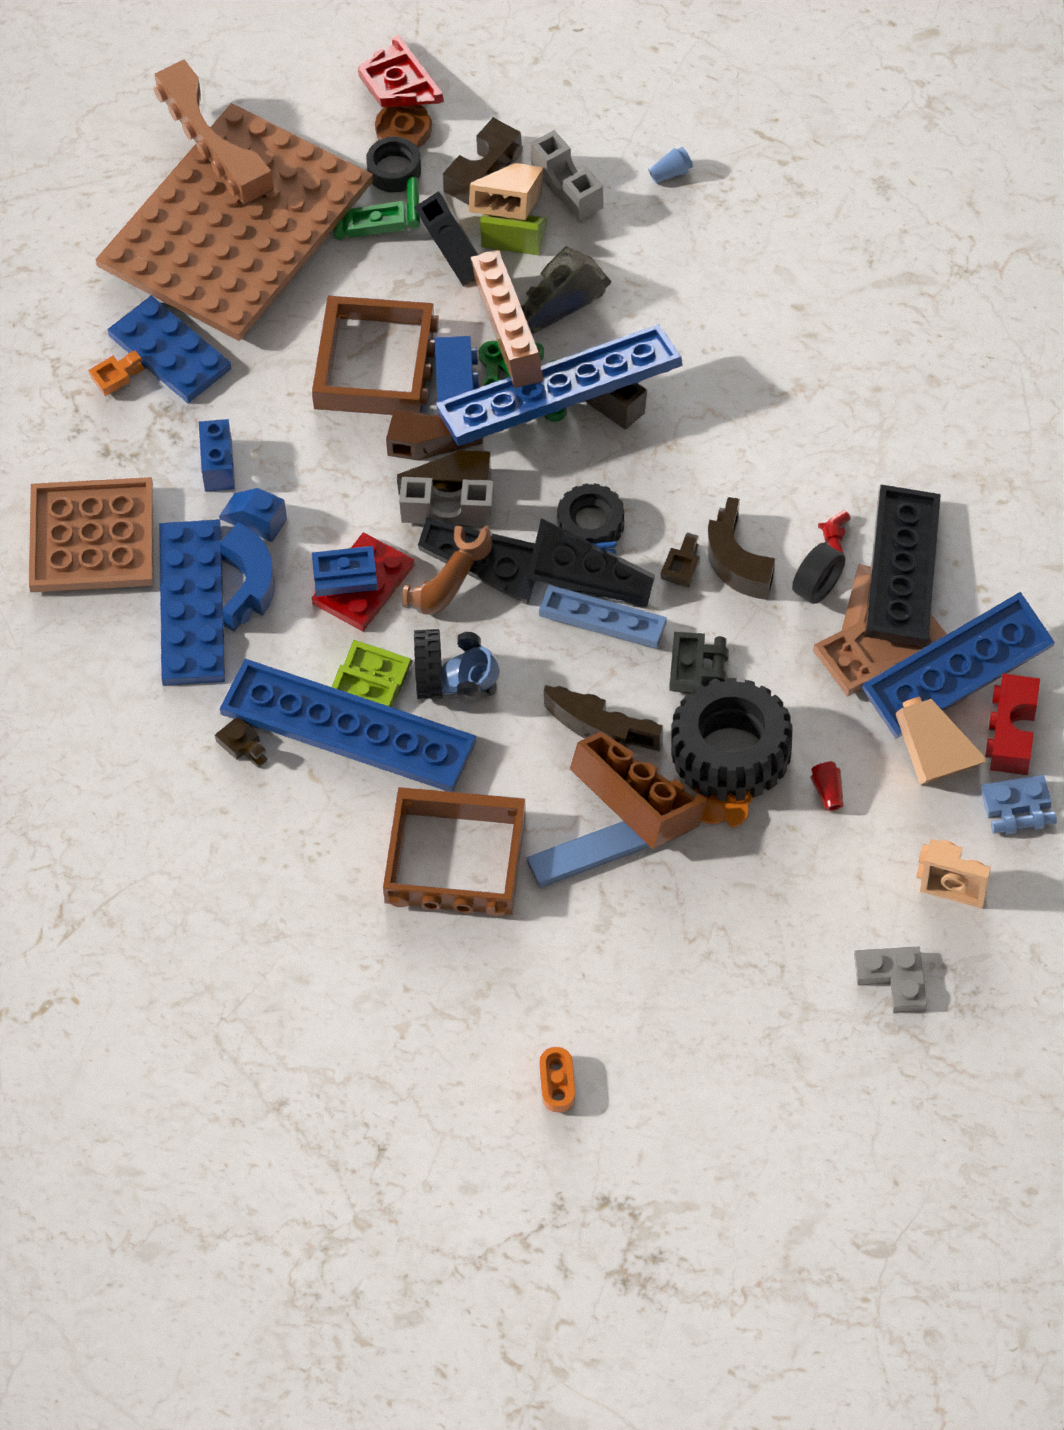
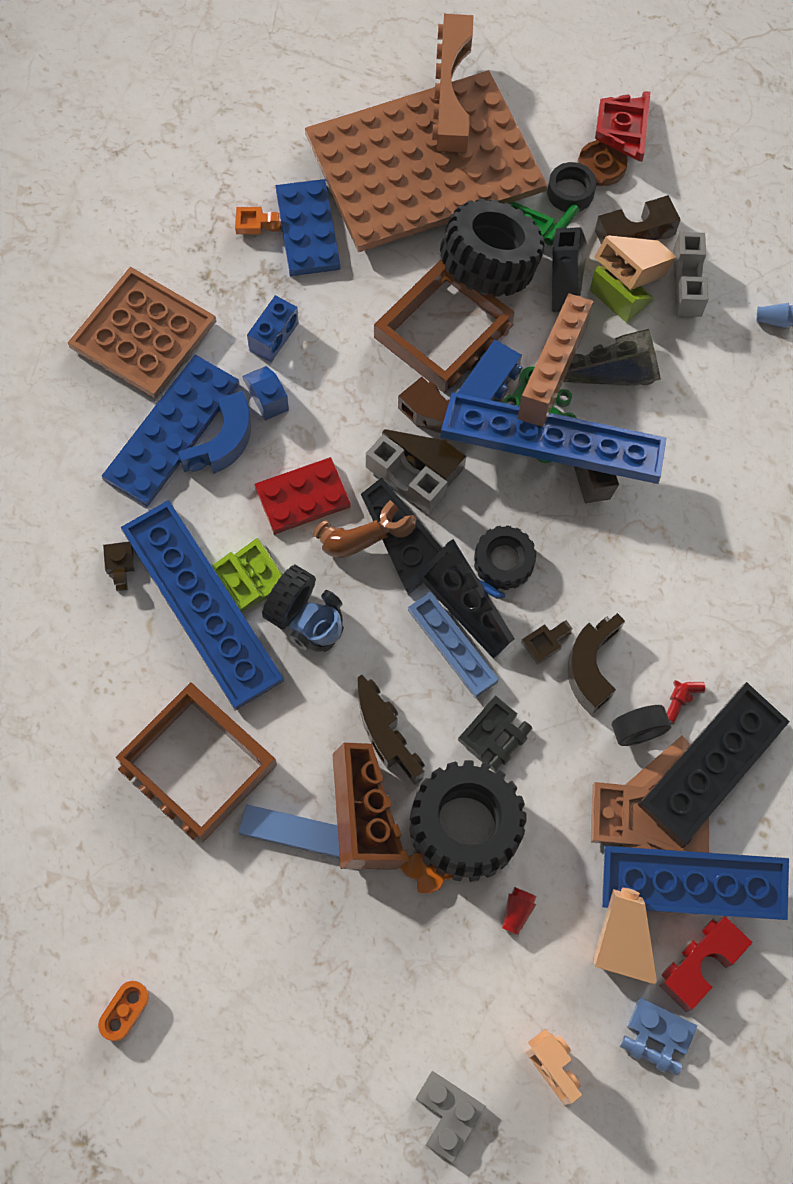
camera: 30 degrees right, 10 degrees up
(344, 571) = (287, 480): blue plate -> none
(369, 258) = (491, 247): none -> black tyre

